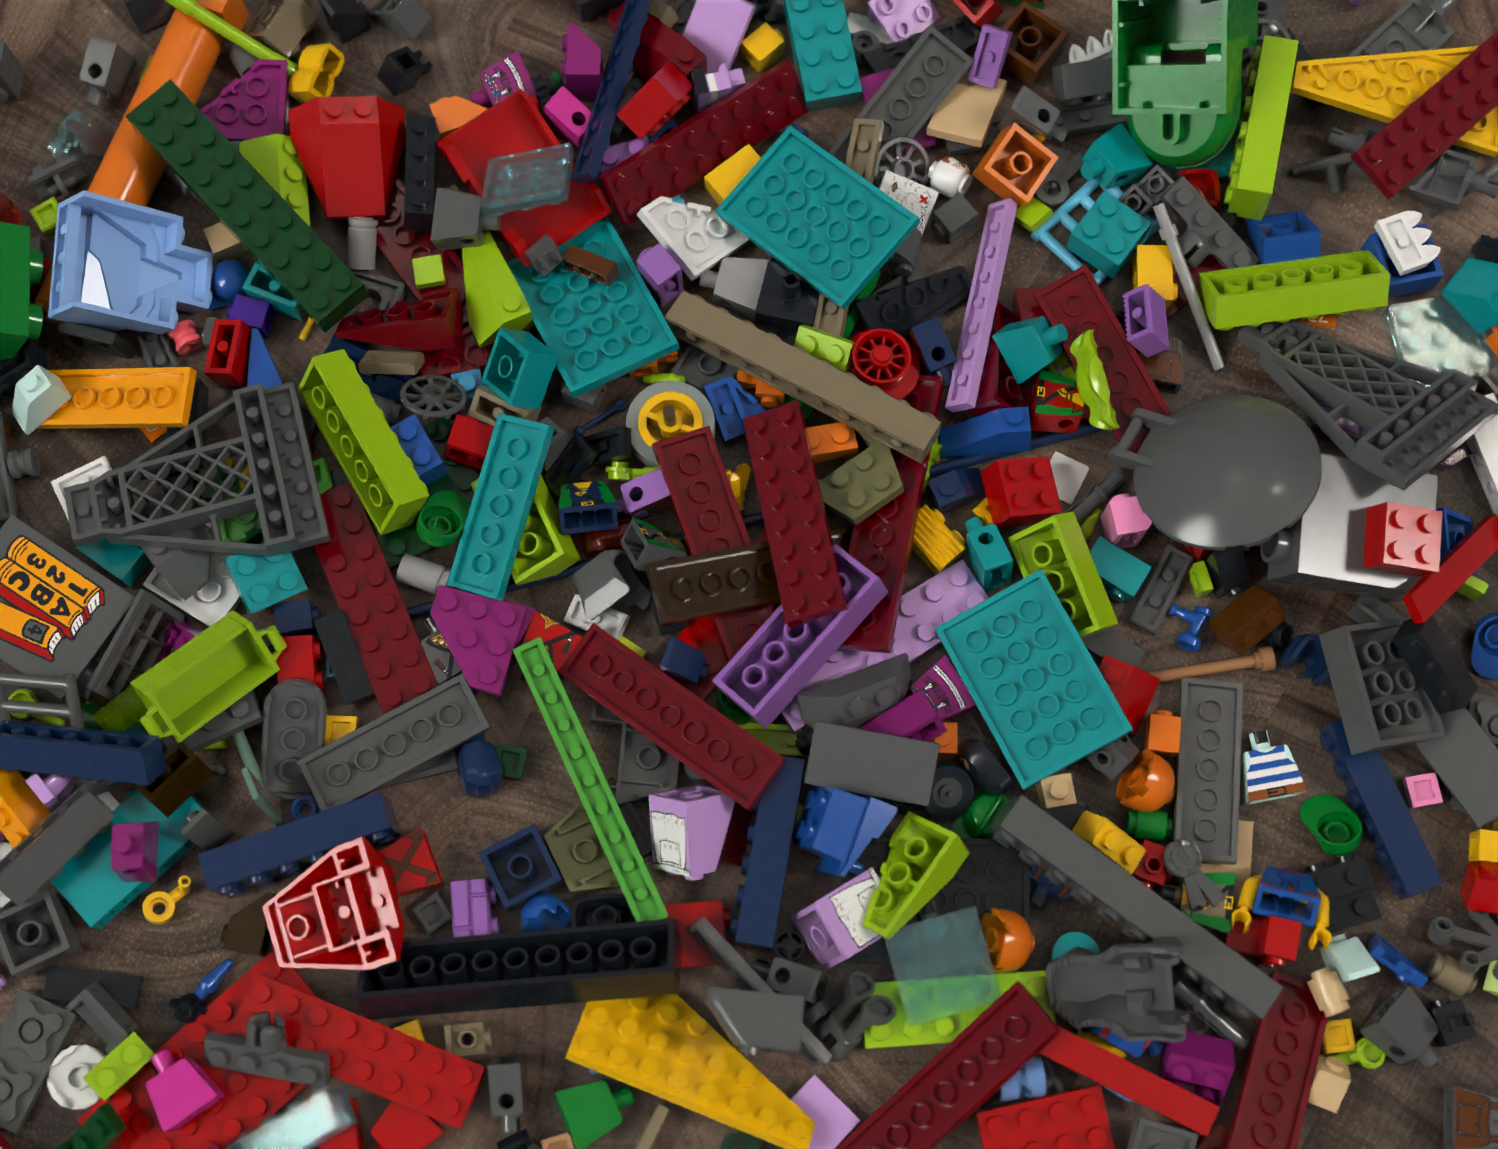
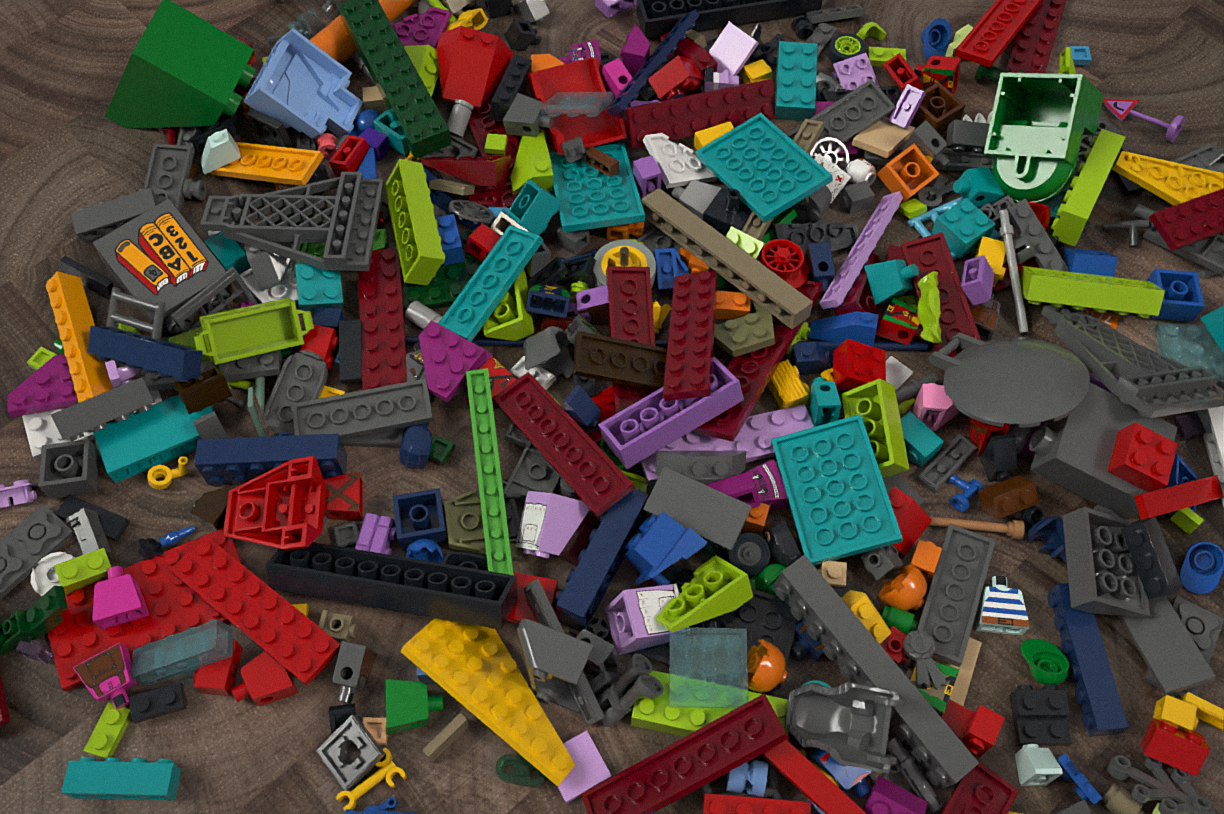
camera: 15 degrees right, 15 degrees down
(135, 848) = (157, 427): magenta torso -> none
(267, 1053) = (189, 588): dark grey plate -> none
(442, 518) = (448, 284): green cap -> none
(1200, 579) = (978, 462): lime tile -> none
(1286, 896) = (996, 697): torso -> none
(1328, 992) = (1016, 784): tan brick -> none
(1405, 242) = (1179, 277): white plate -> none
(1422, 790) = (1123, 656): bright pink plate -> none

